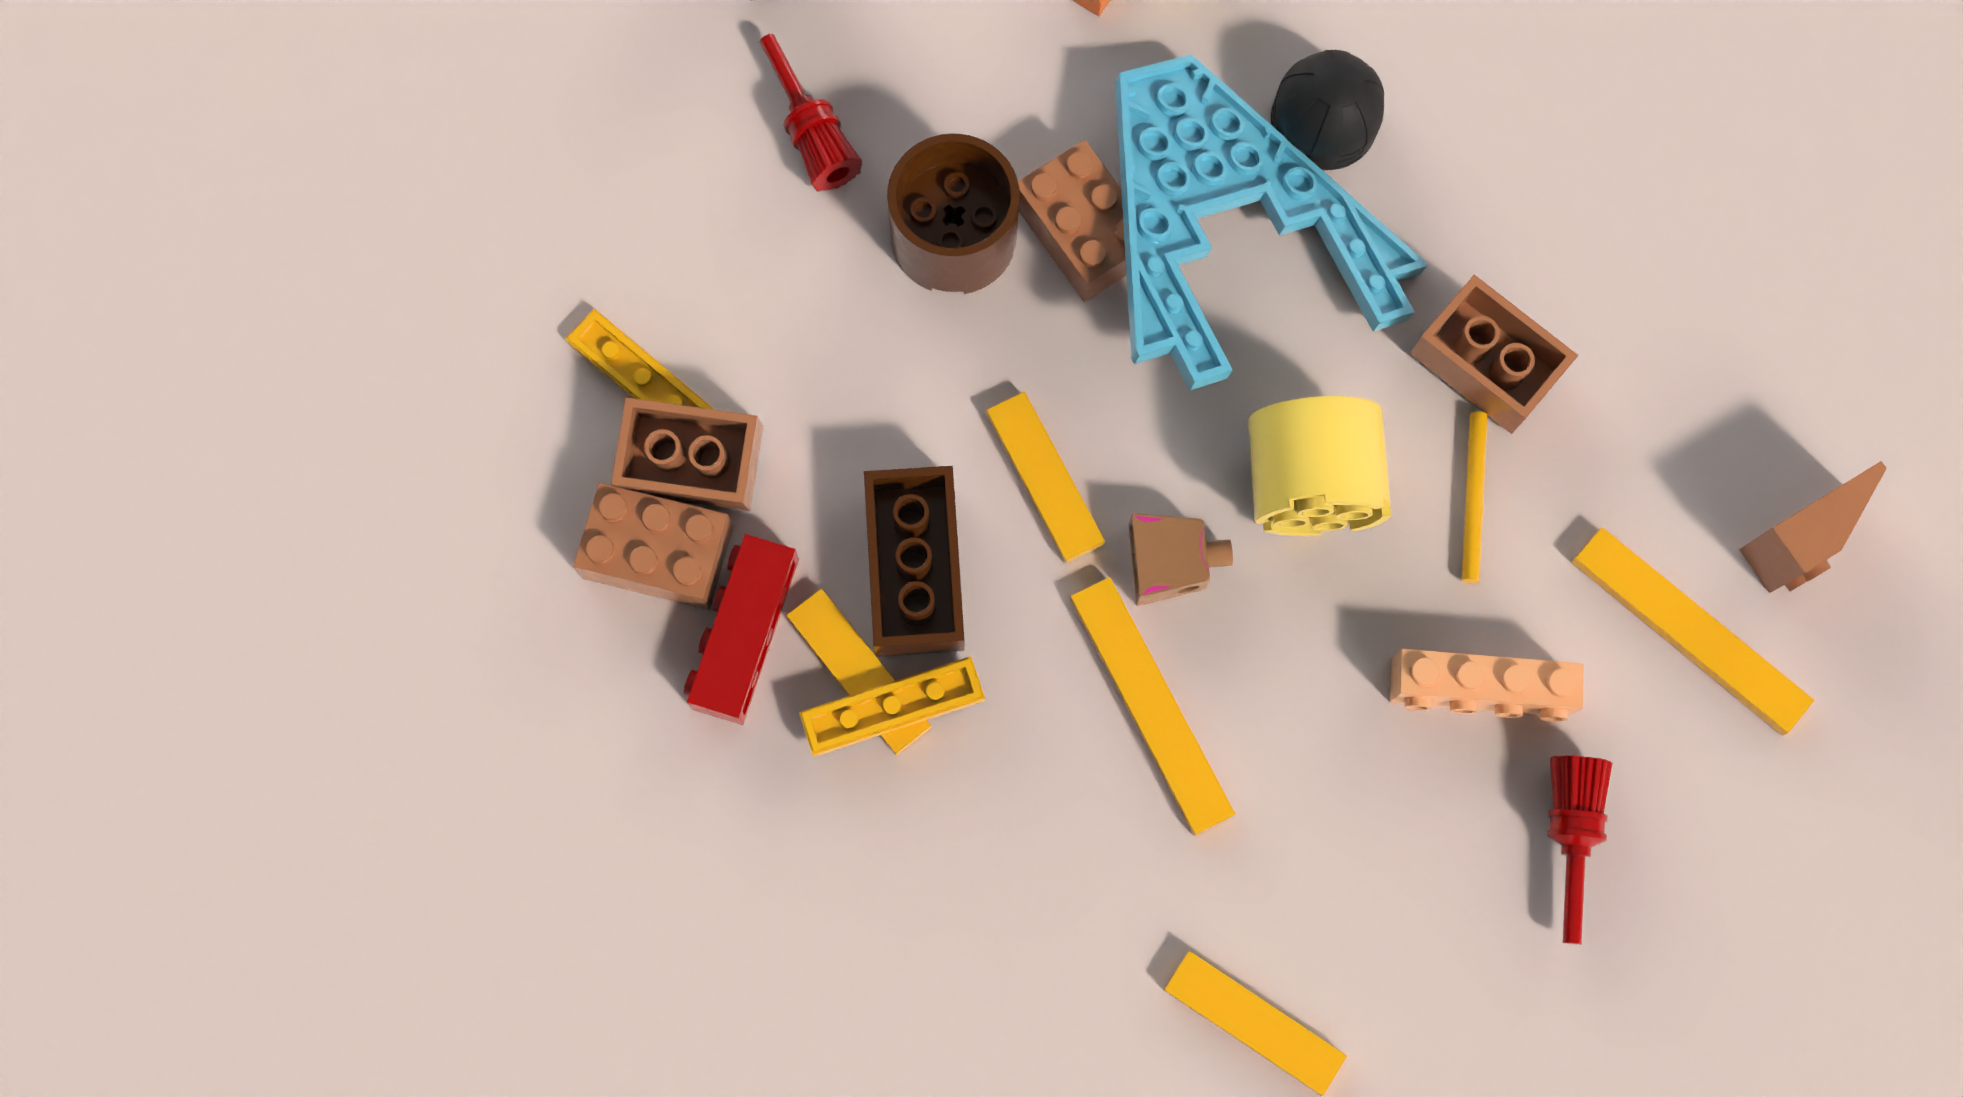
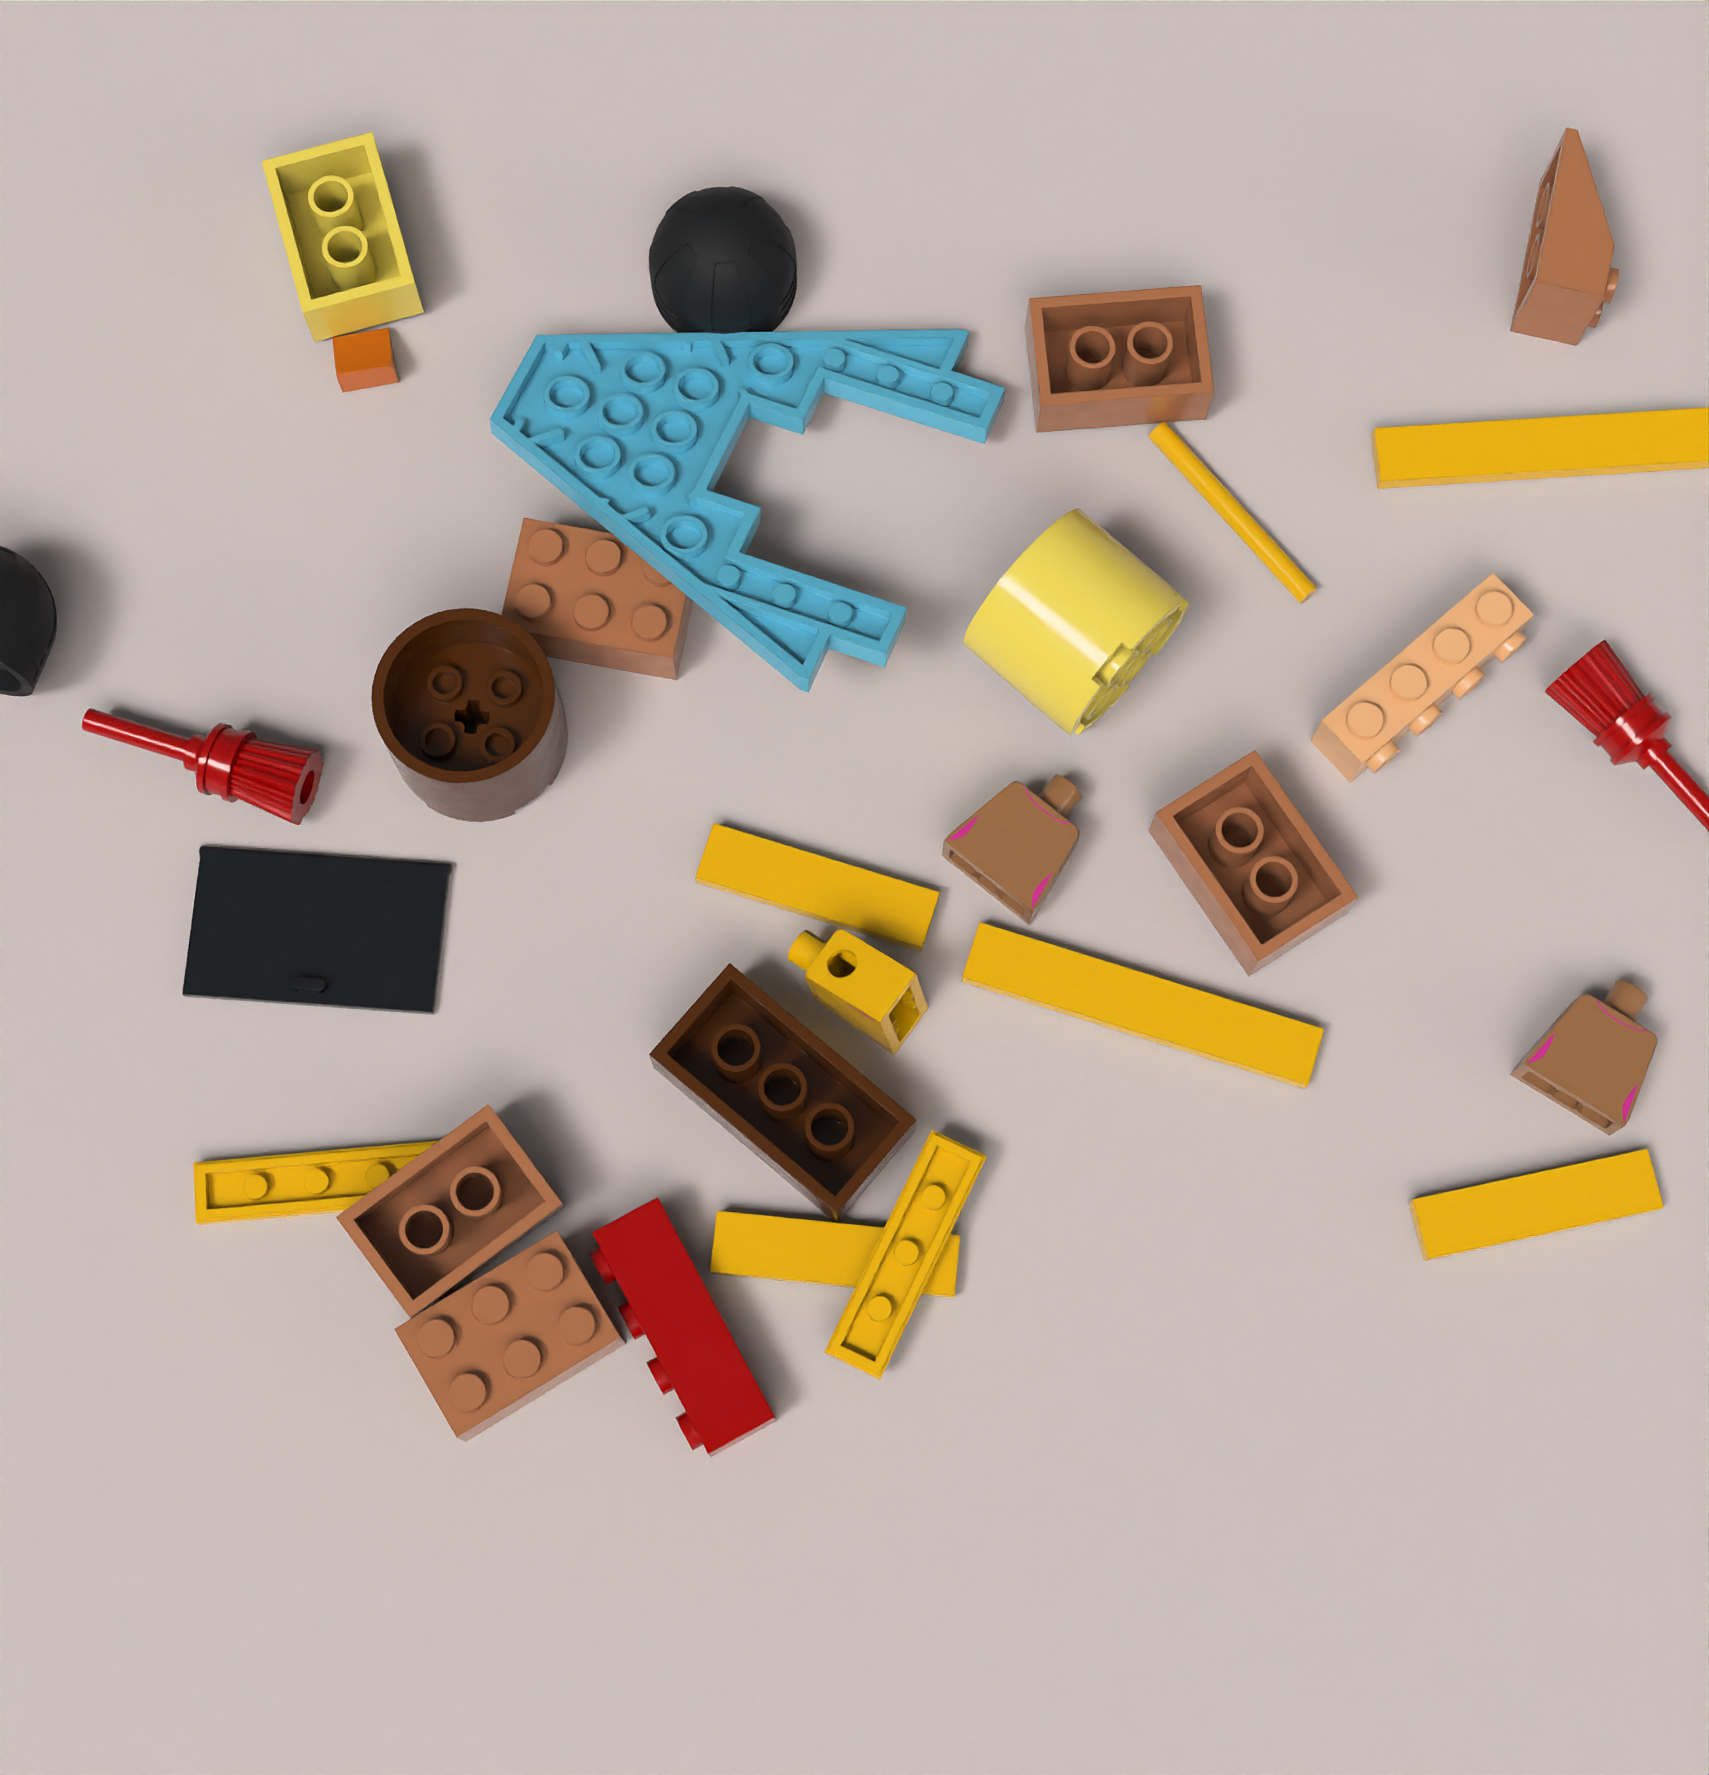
camera: 45 degrees left, 0 degrees up
(766, 237) = (317, 920): none -> black container
(1011, 547) = (861, 986): none -> yellow torso
(1286, 687) = (1252, 863): none -> nougat brick
(1368, 976) = (1593, 1057): none -> medium nougat torso

